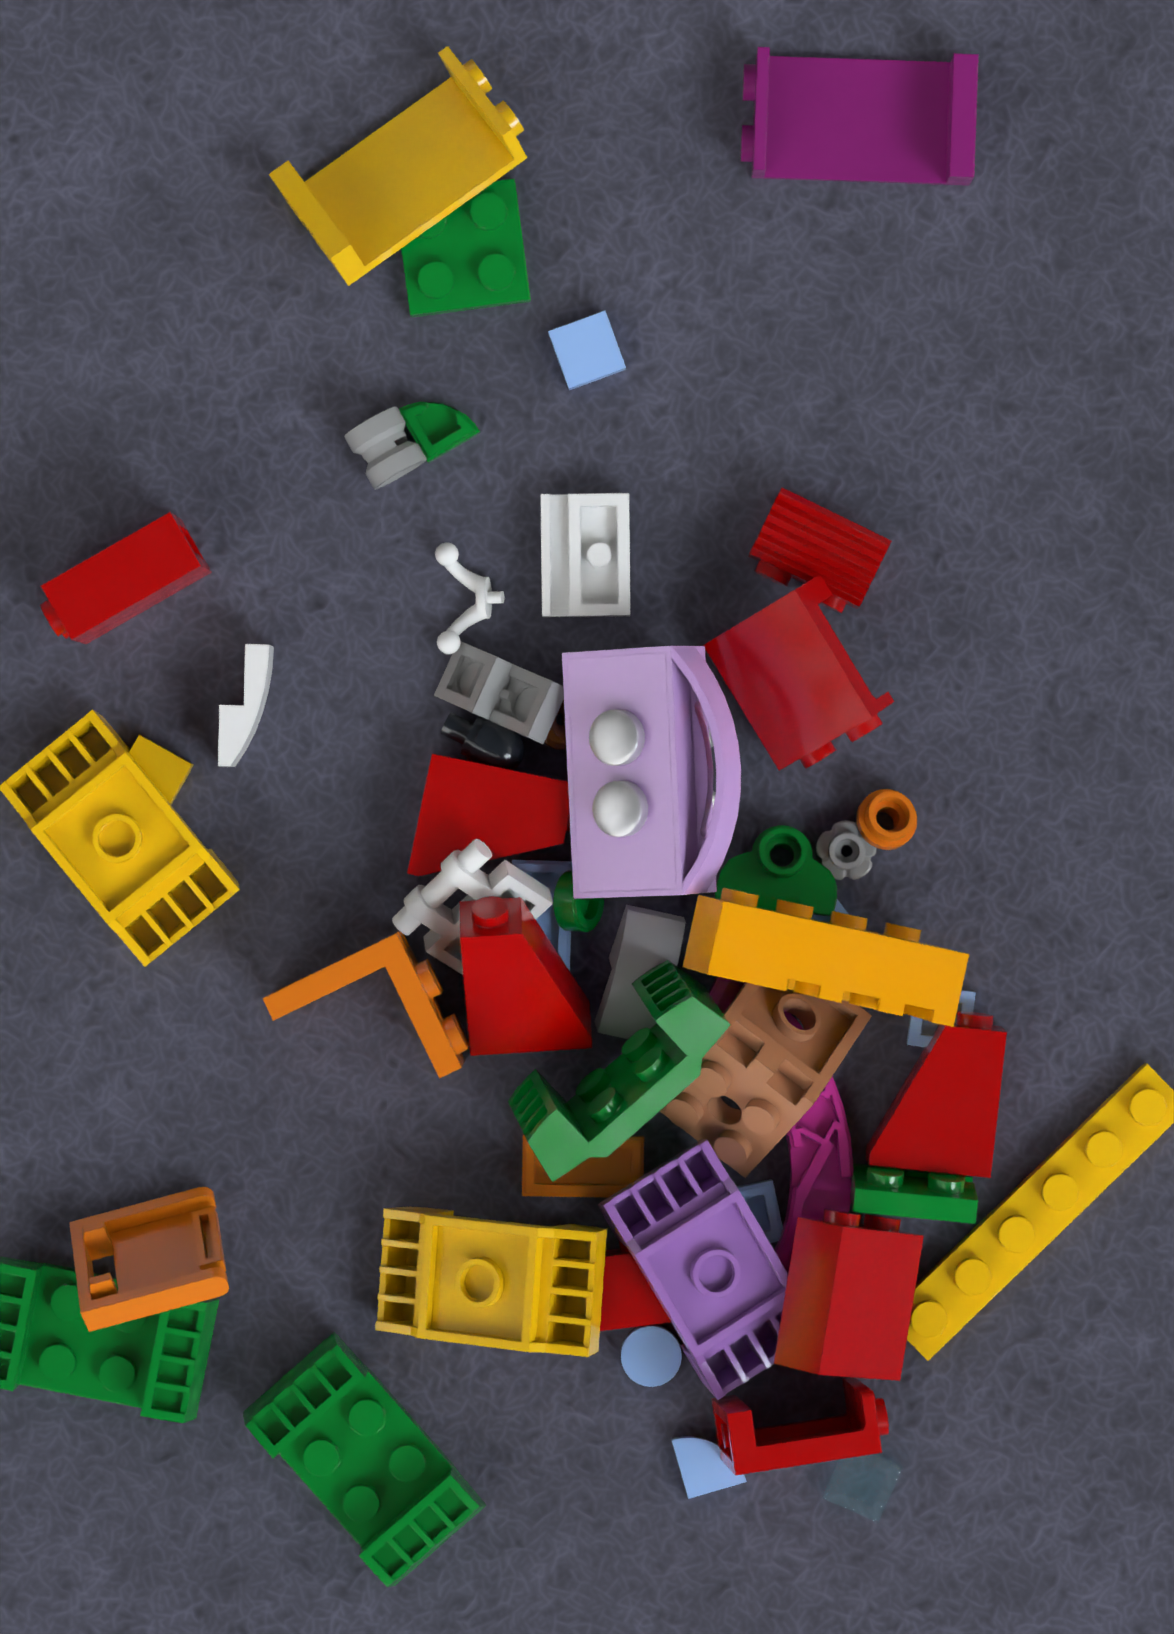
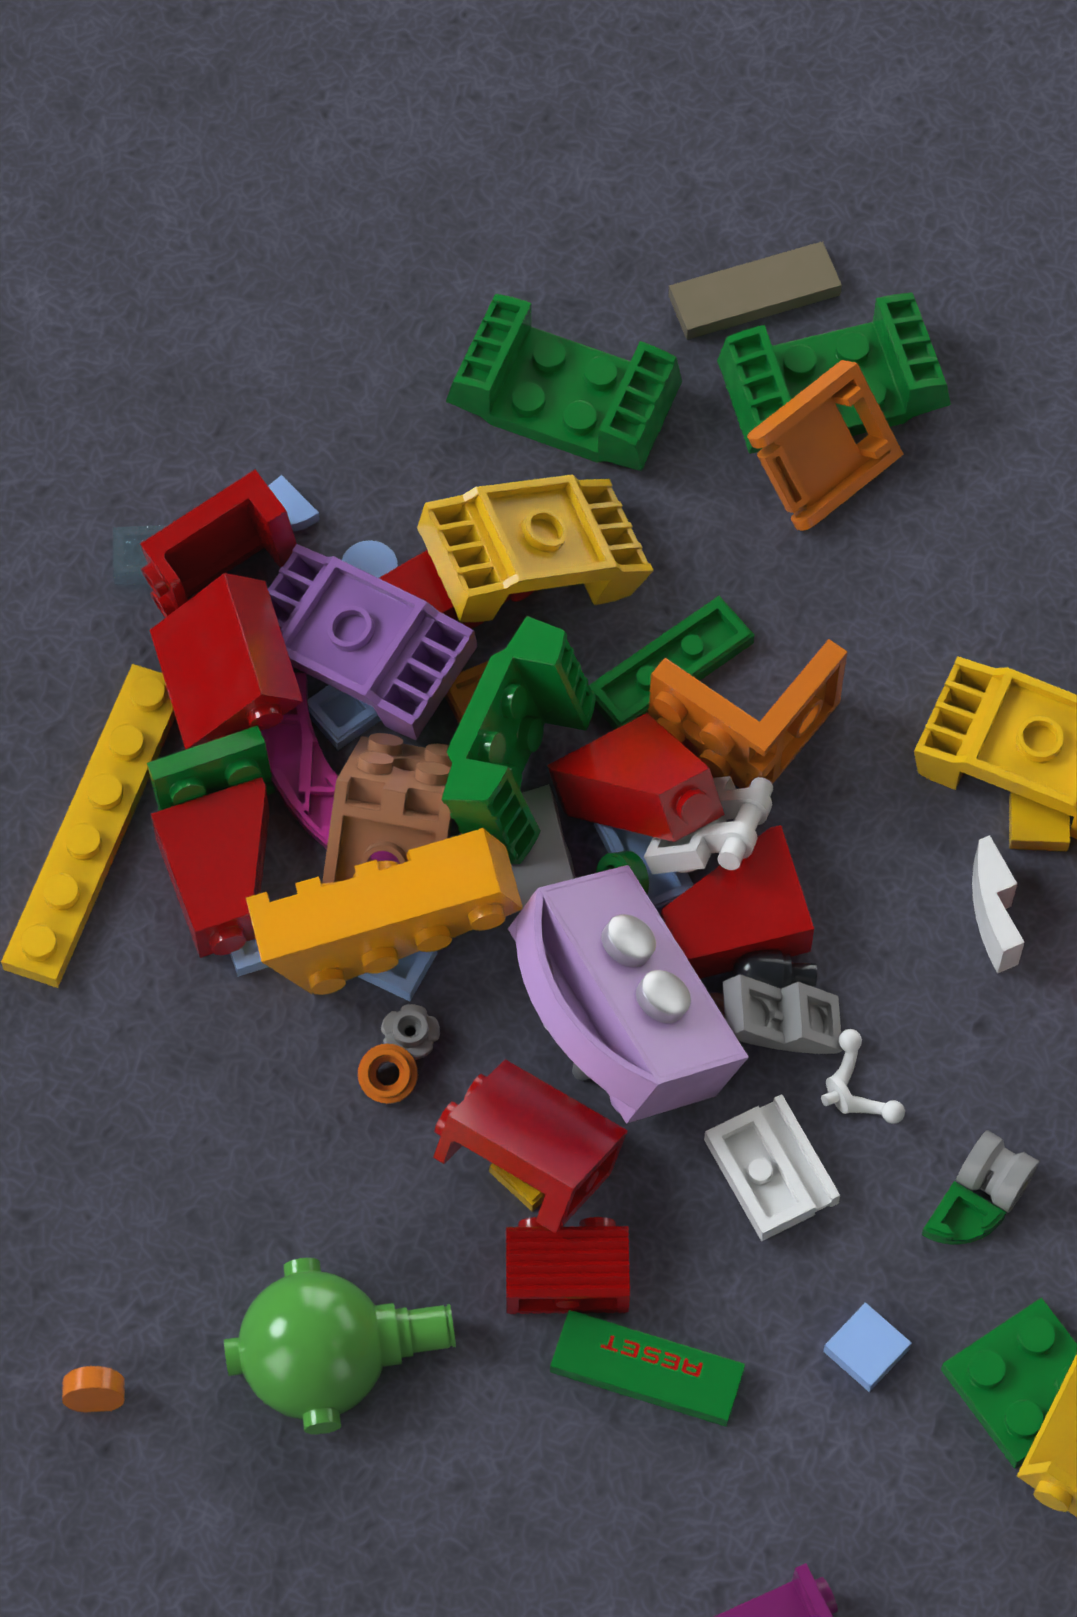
camera: 150 degrees right, 25 degrees down
(115, 1482) = (754, 290): none -> dark tan tile
(414, 1109) = (695, 645): none -> green tile
(791, 427) = (647, 1368): none -> green tile
(799, 882) = (458, 969): green plate -> none
(1071, 588) = (320, 1343): none -> bright green piece

